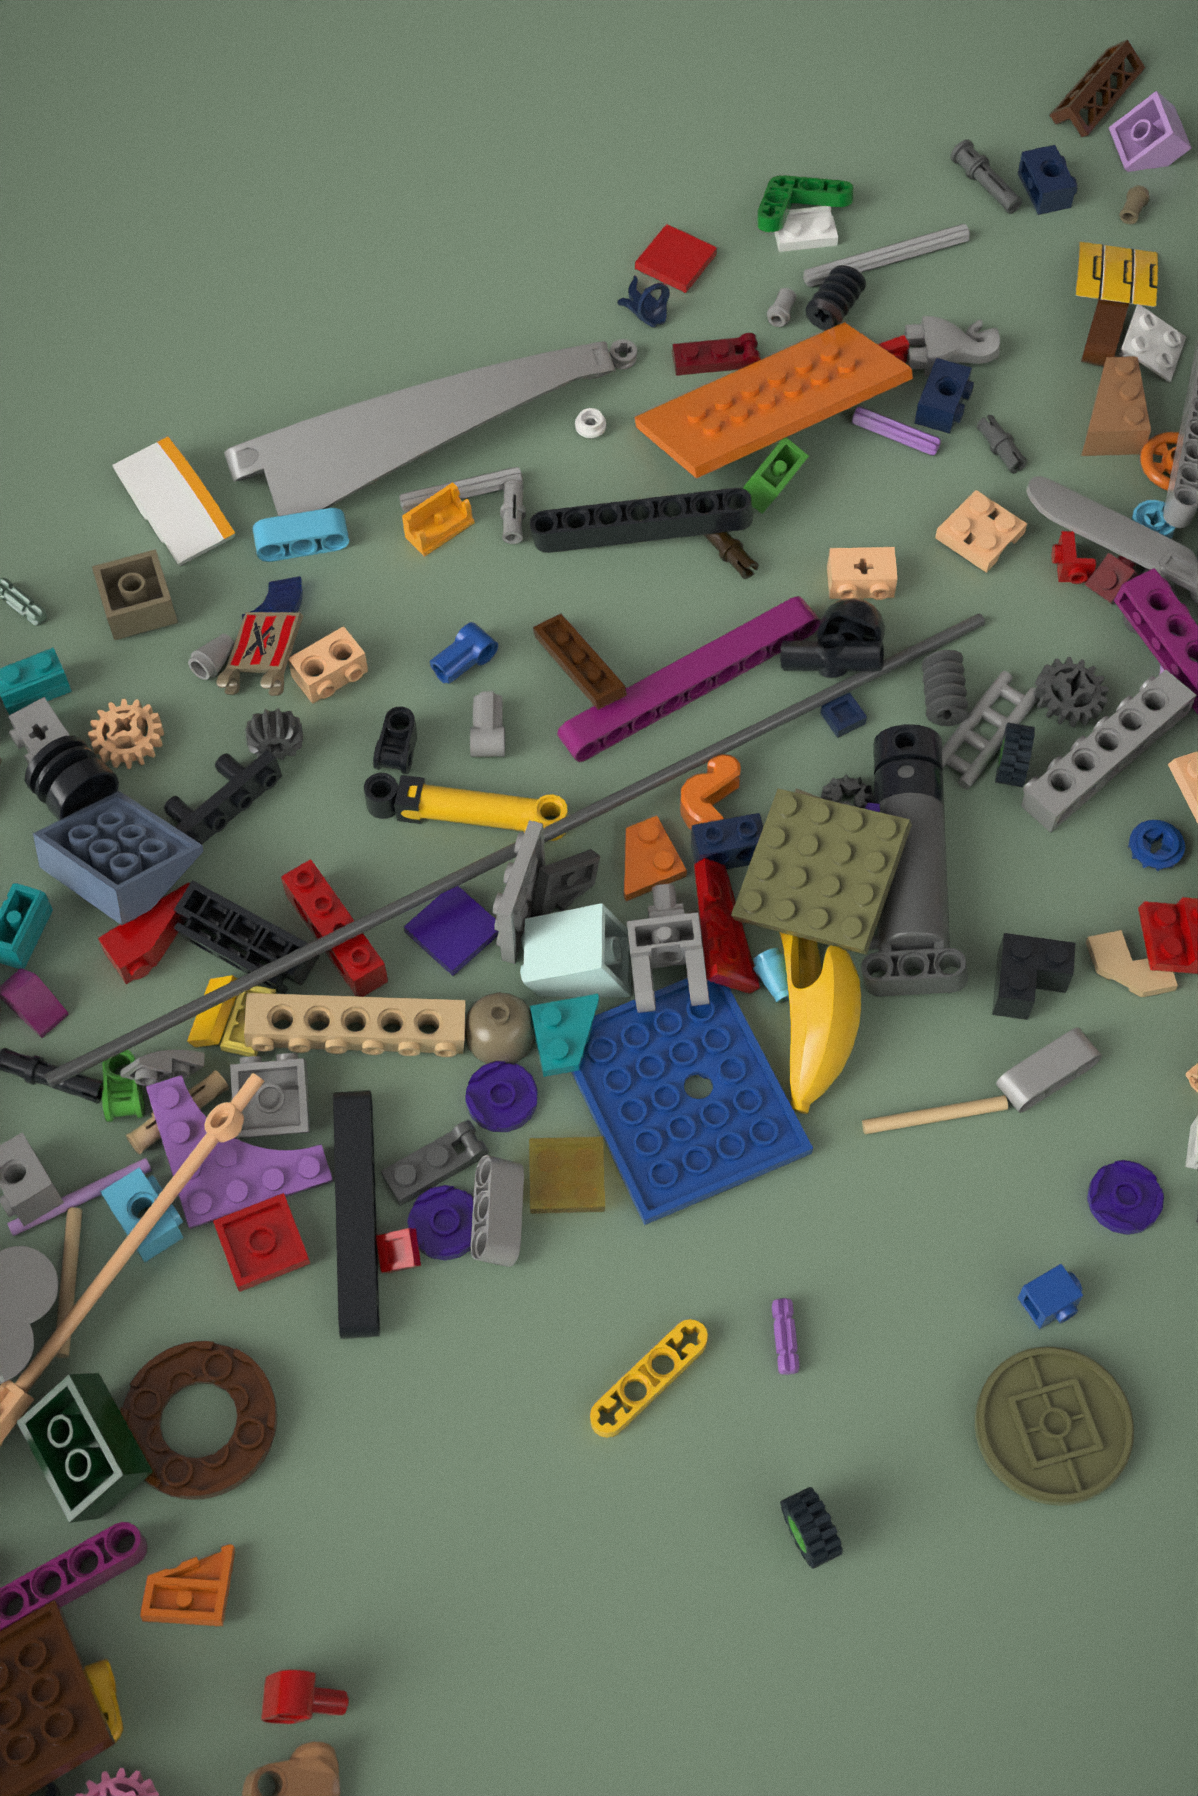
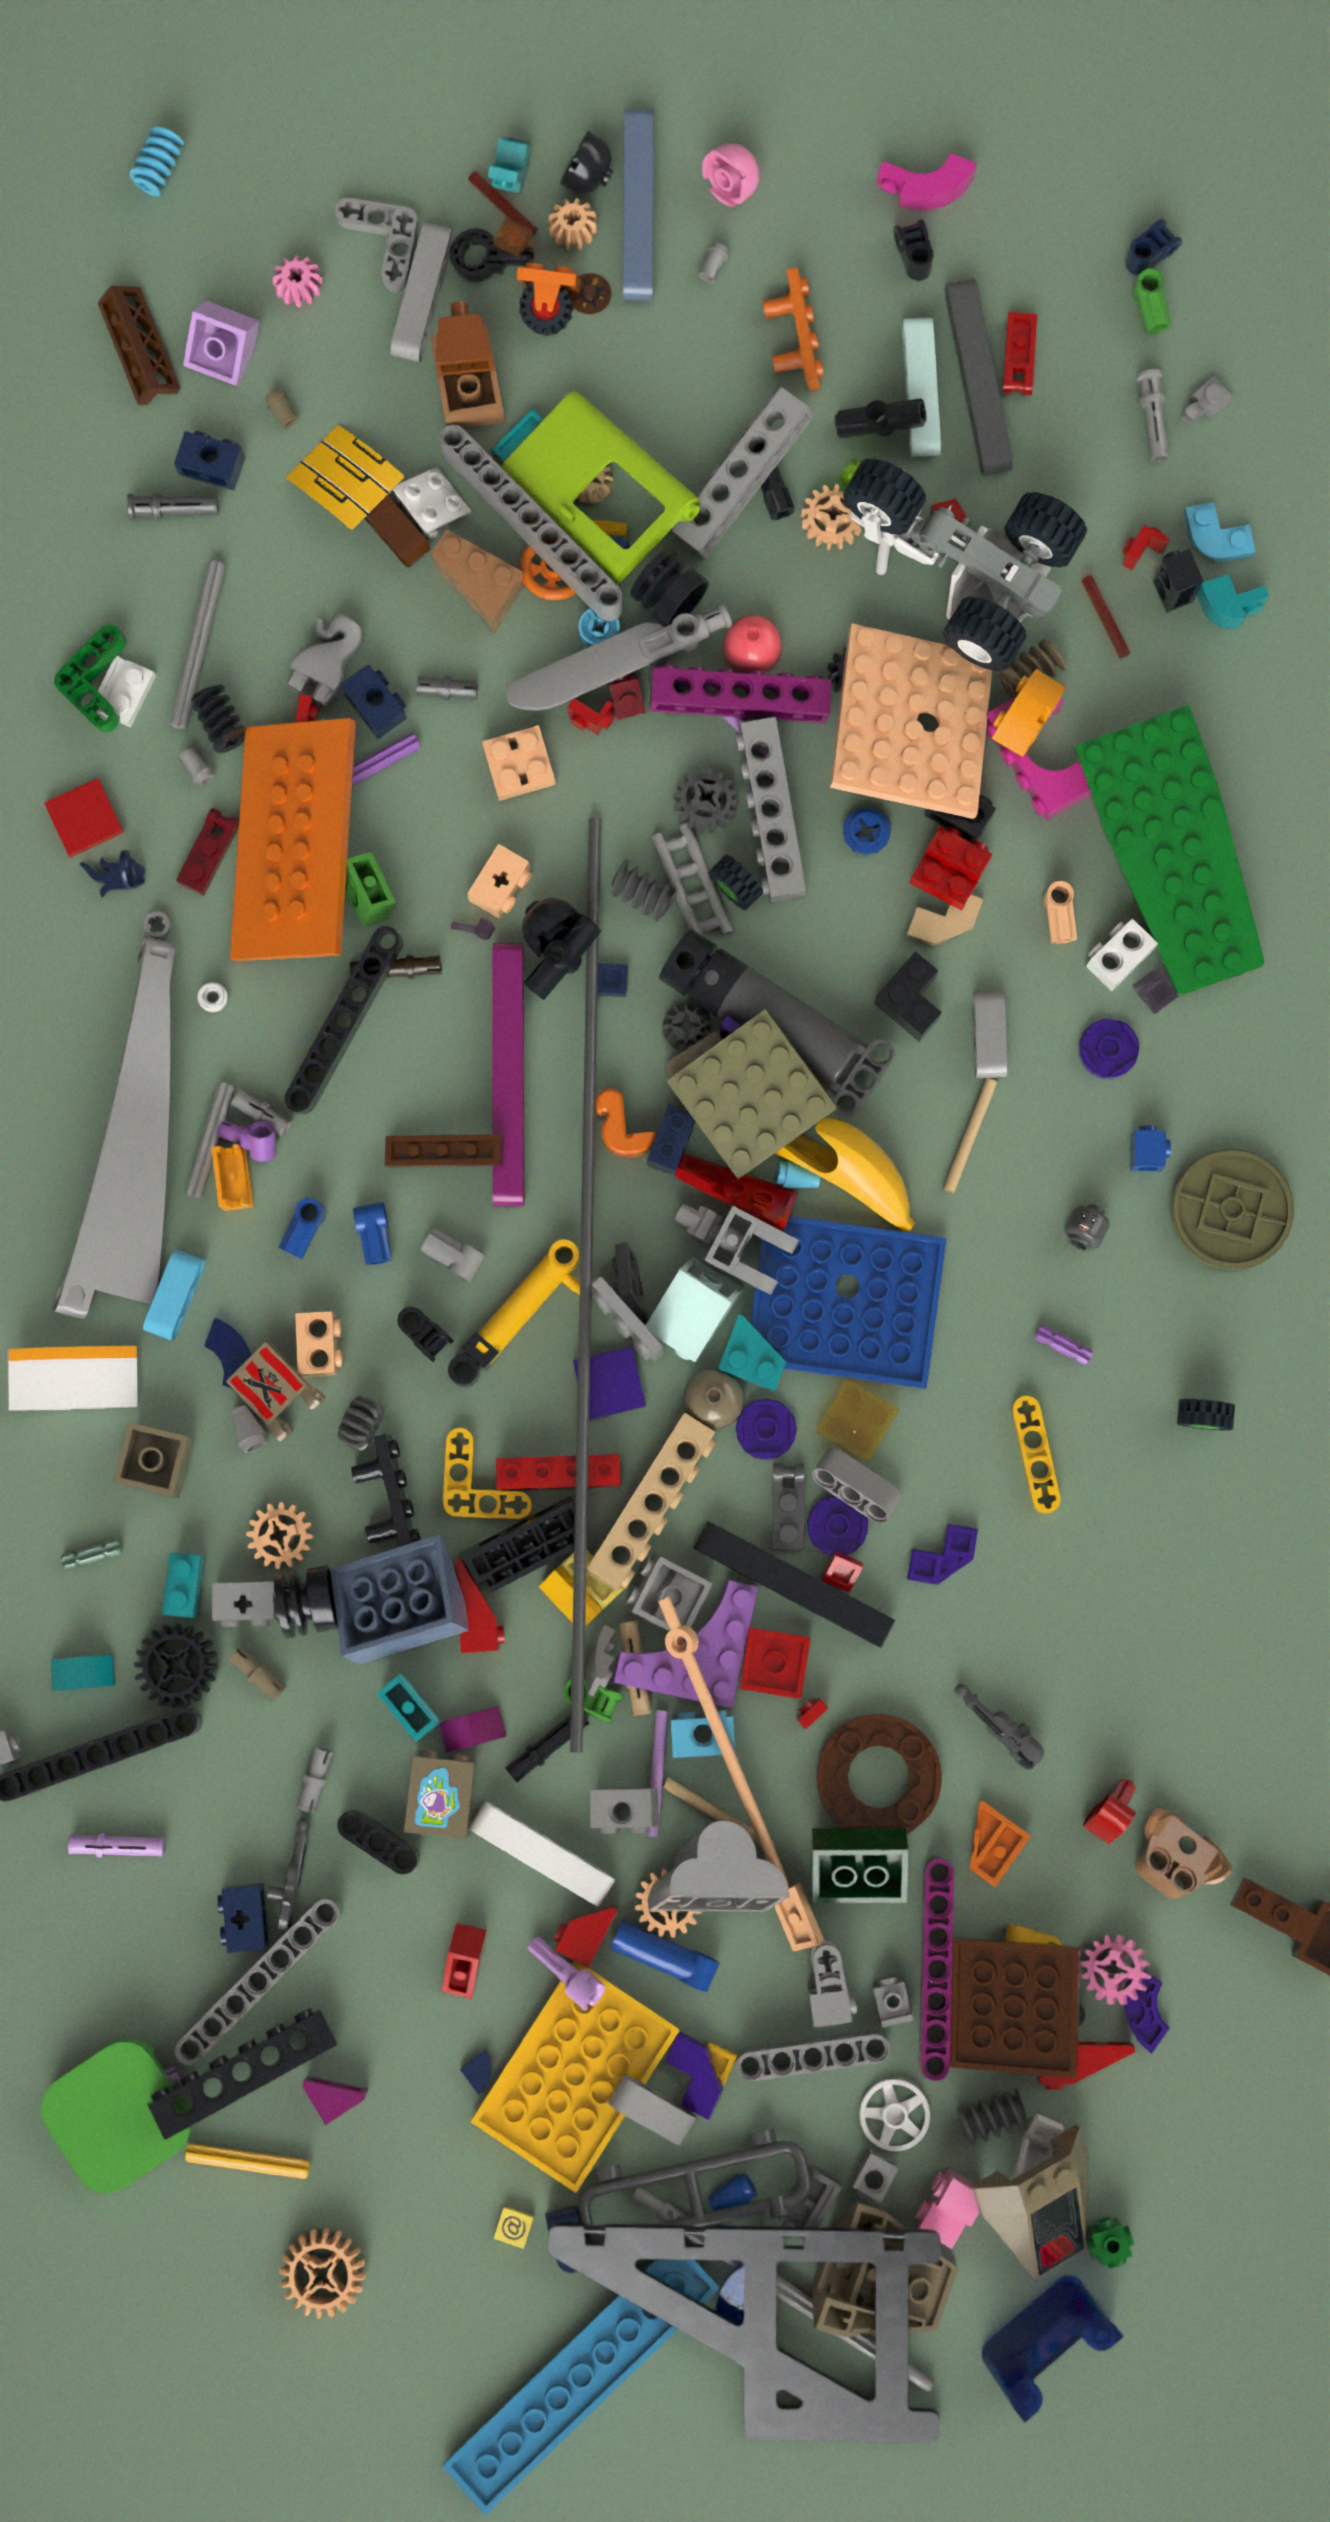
camera: 55 degrees left, 20 degrees up
(228, 1307) = (811, 1712): none -> red plate
(268, 862) = (464, 1487): none -> yellow beam
(321, 1540) = (1018, 1740): none -> dark grey piece
(432, 596) = (300, 1231): none -> blue piece
(485, 514) = (257, 1138): none -> medium lavender pin
(490, 1360) = (936, 1567): none -> dark purple tile
(649, 858) = (641, 1203): orange wing -> none
(808, 588) = (483, 930): none -> hand
(924, 1281) = (1087, 1227): none -> dark grey head

